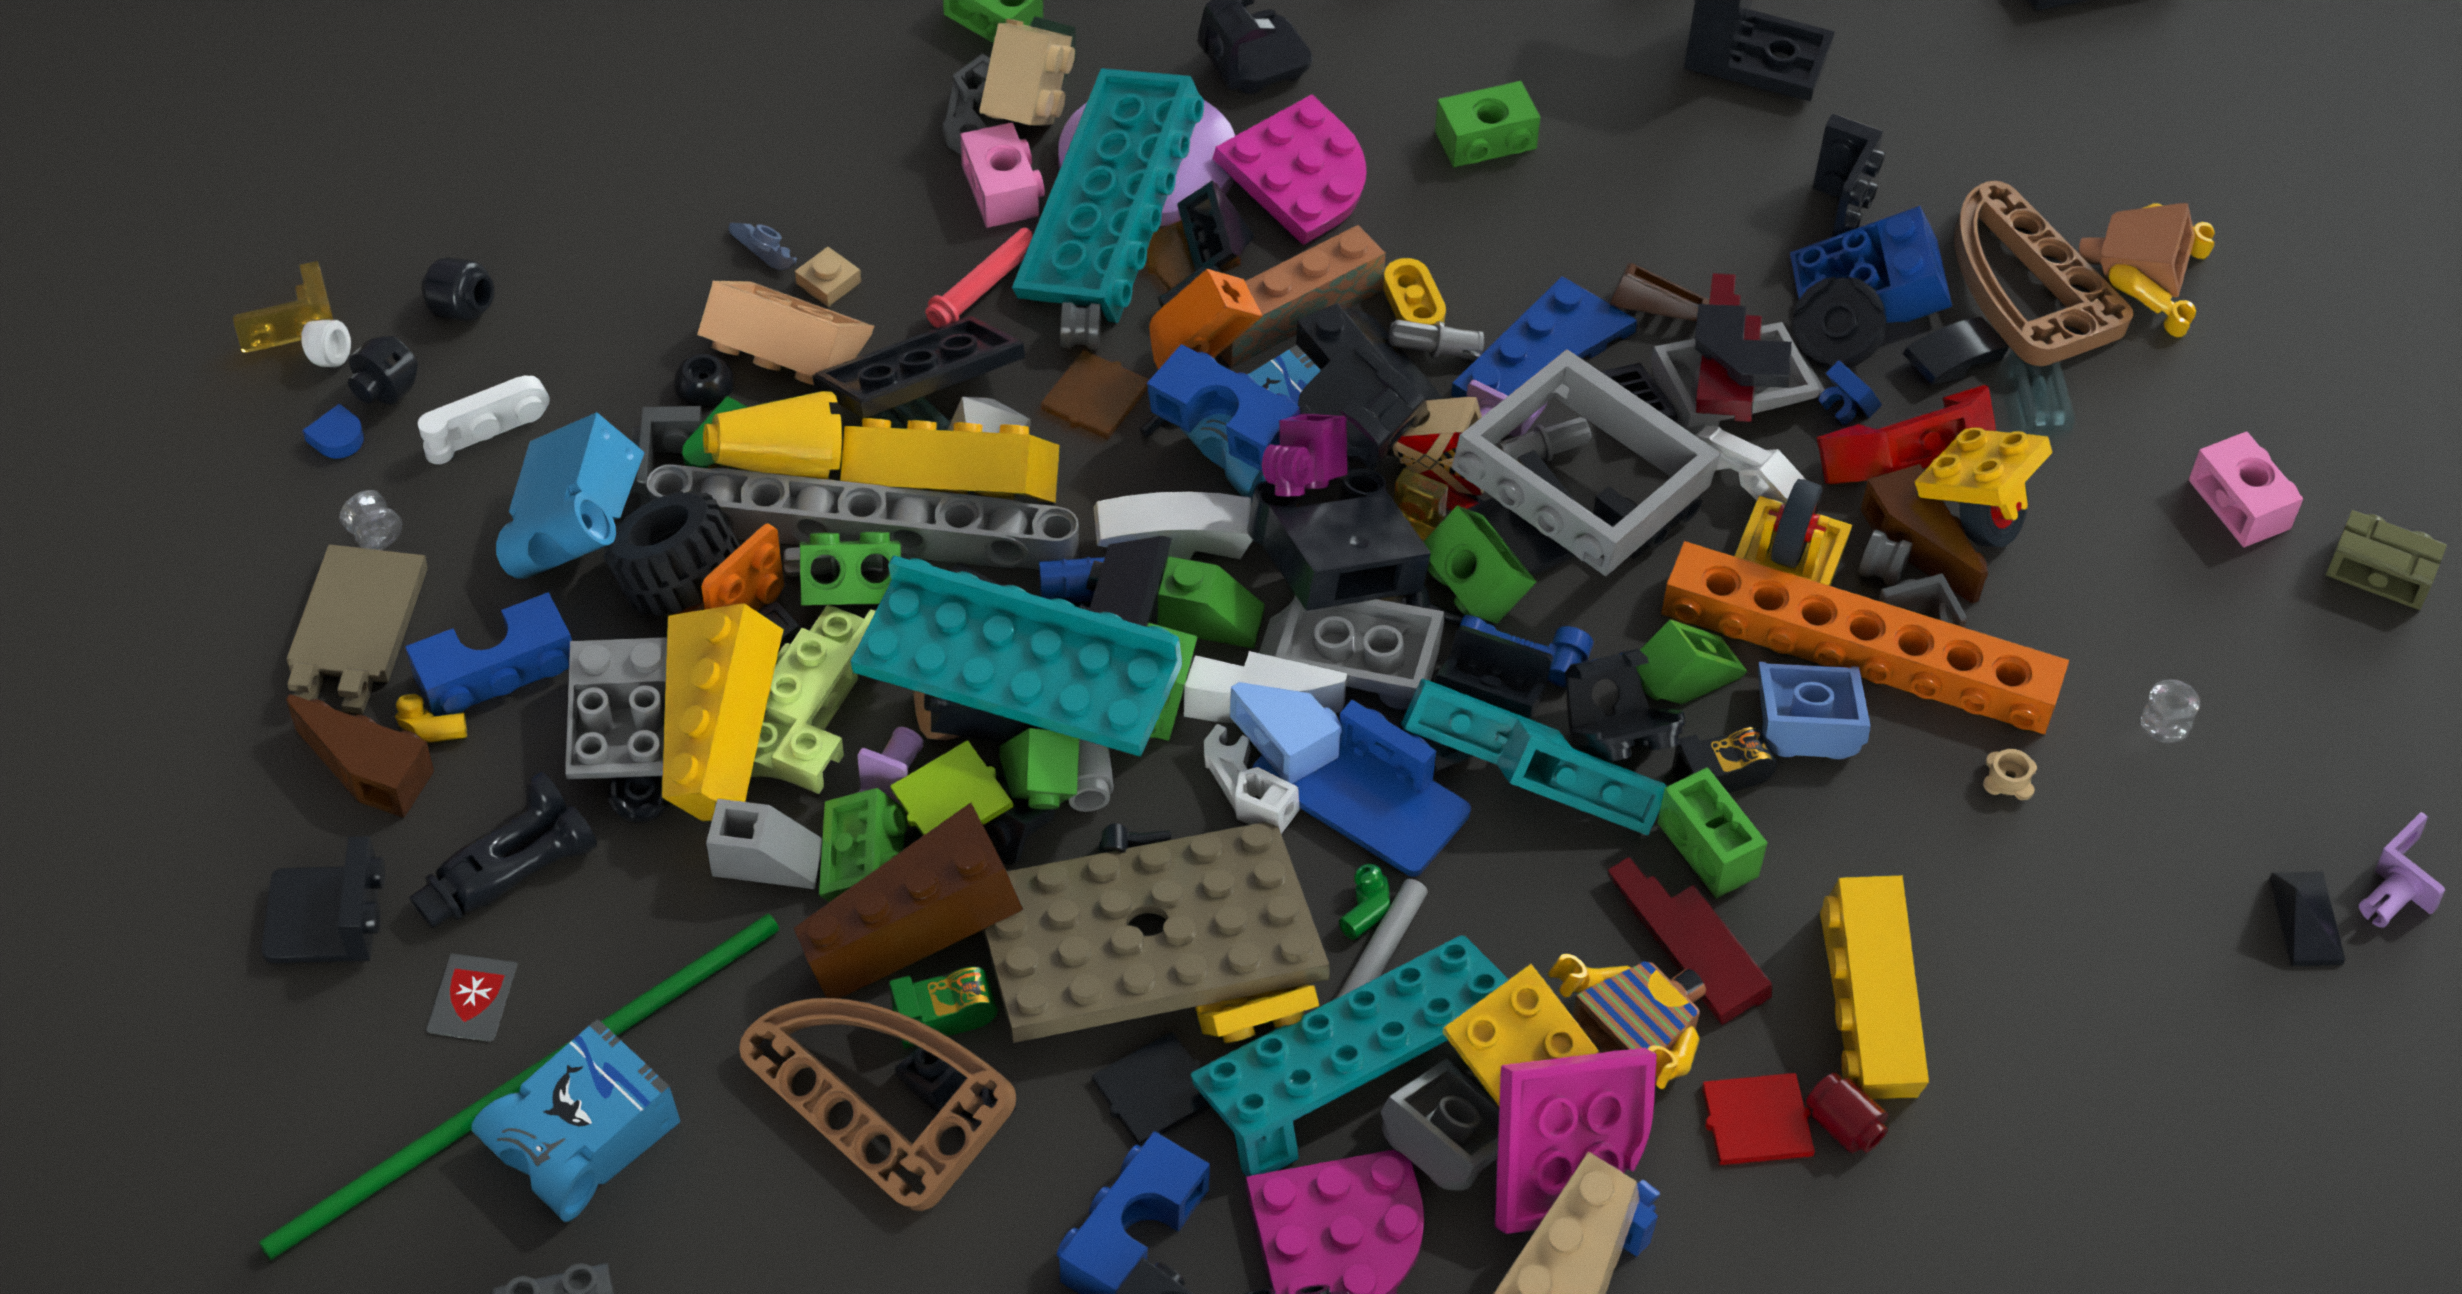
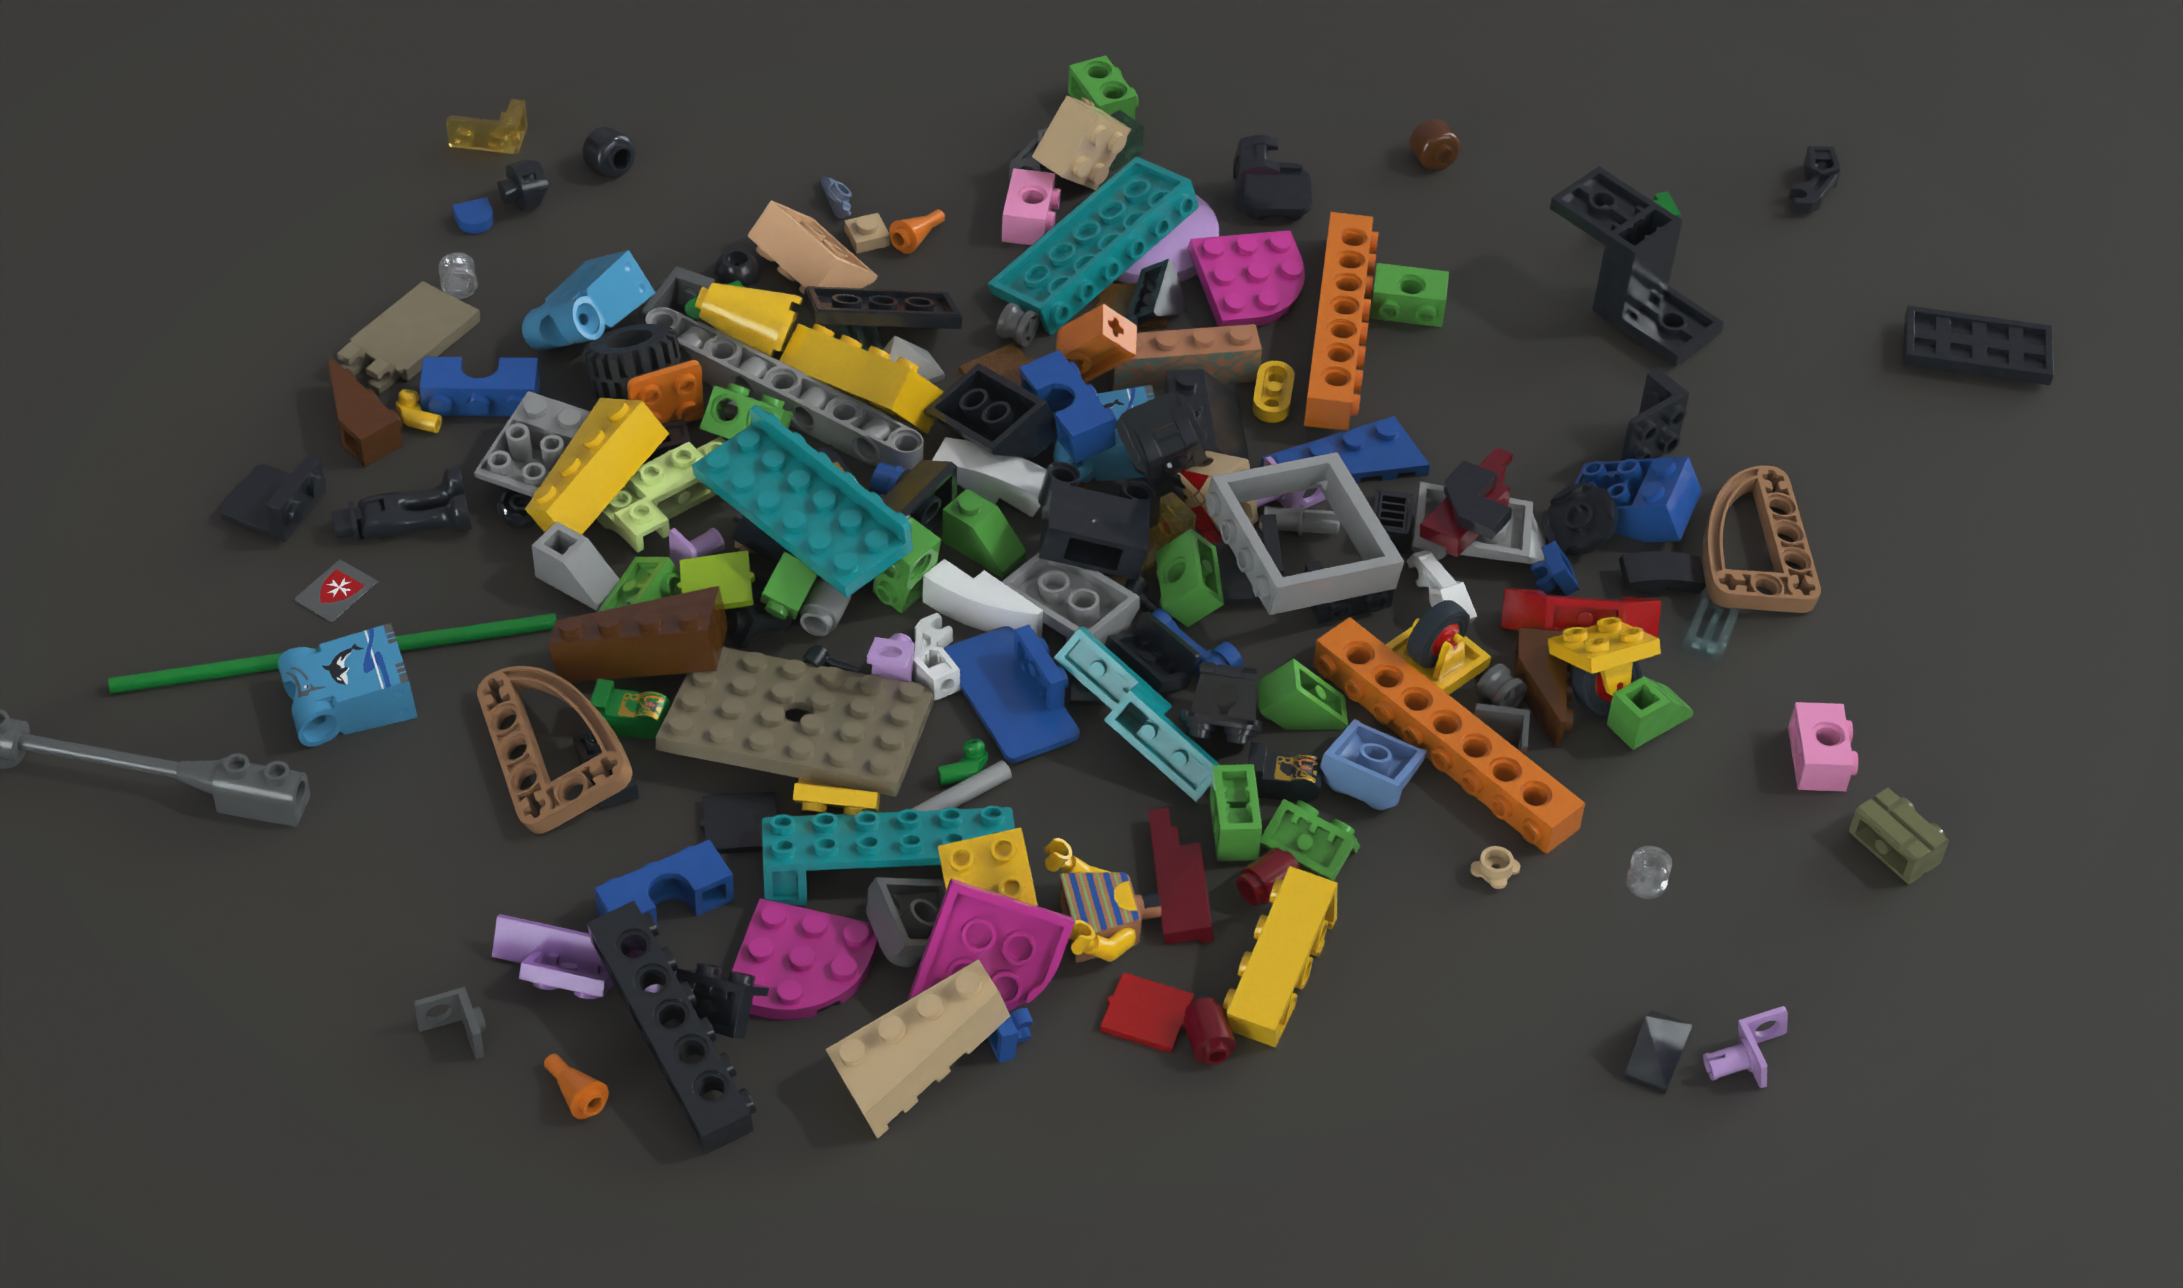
camera: 25 degrees right, 5 degrees down
(326, 342) = (500, 154): white tile -> none
(481, 417) = (572, 237): white plate -> none
(882, 257) = (910, 232): none -> orange cone
(947, 308) = (966, 271): coral axle -> none
(1141, 450) = (995, 414): none -> black slope
(1214, 803) = (892, 657): none -> lavender bracket
(1286, 728) = (978, 630): light blue slope -> none
(1308, 453) = (1103, 452): magenta brick -> none
(1436, 339) = (1268, 423): light grey axle -> none
(1438, 186) = (1340, 322): none -> orange brick
(1653, 294) = (1447, 446): reddish brown slope -> none
(1789, 894) = (1259, 876): none -> dark red brick
(1806, 830) = (1310, 839): none -> bright green bracket
(2050, 526) = (1645, 711): none -> bright green slope
(2149, 255) = (1860, 558): nougat torso -> none

